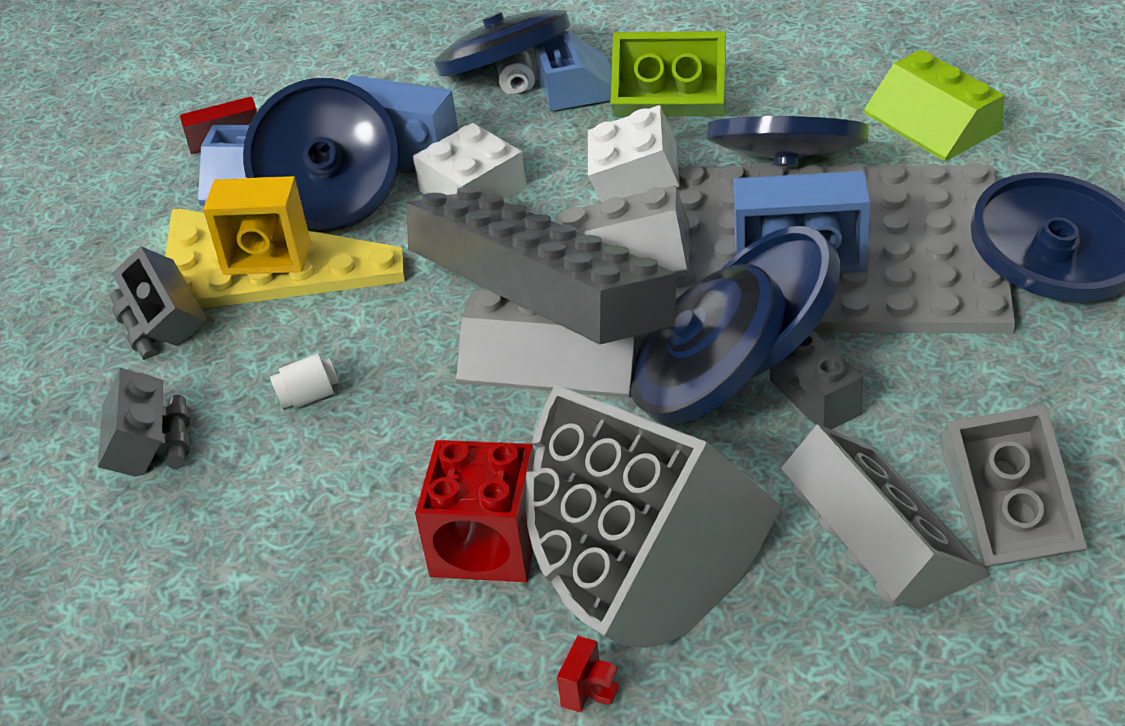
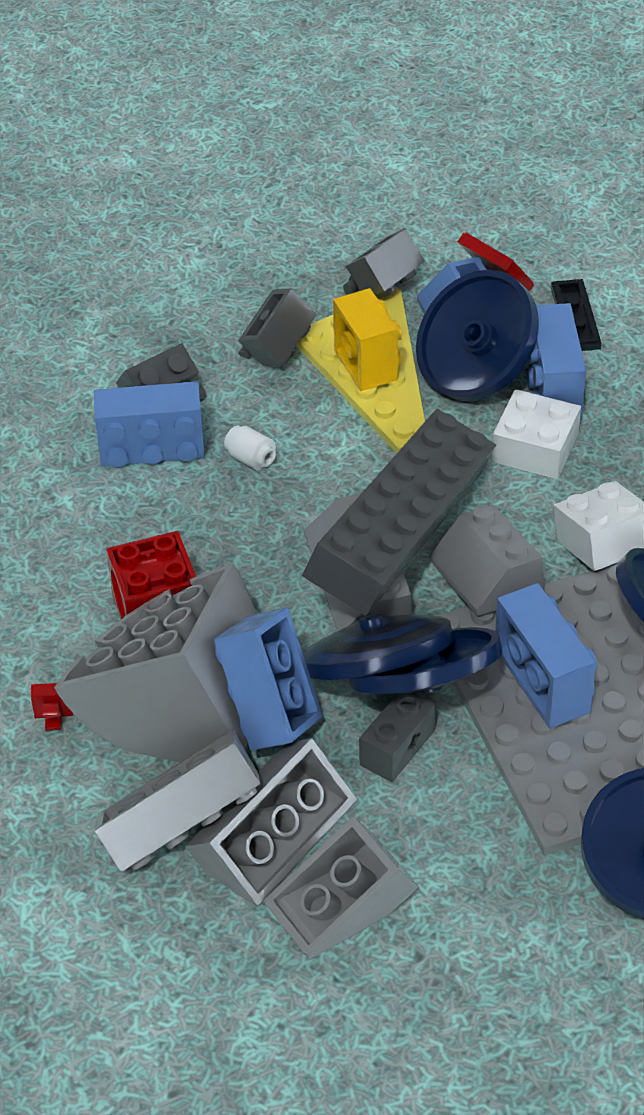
camera: 60 degrees right, 5 degrees up
(145, 200) = (384, 265): none -> brick
(208, 444) = (149, 424): none -> medium blue brick
(715, 410) = (268, 679): none -> medium blue brick
(833, 577) = (177, 801): none -> light grey slope

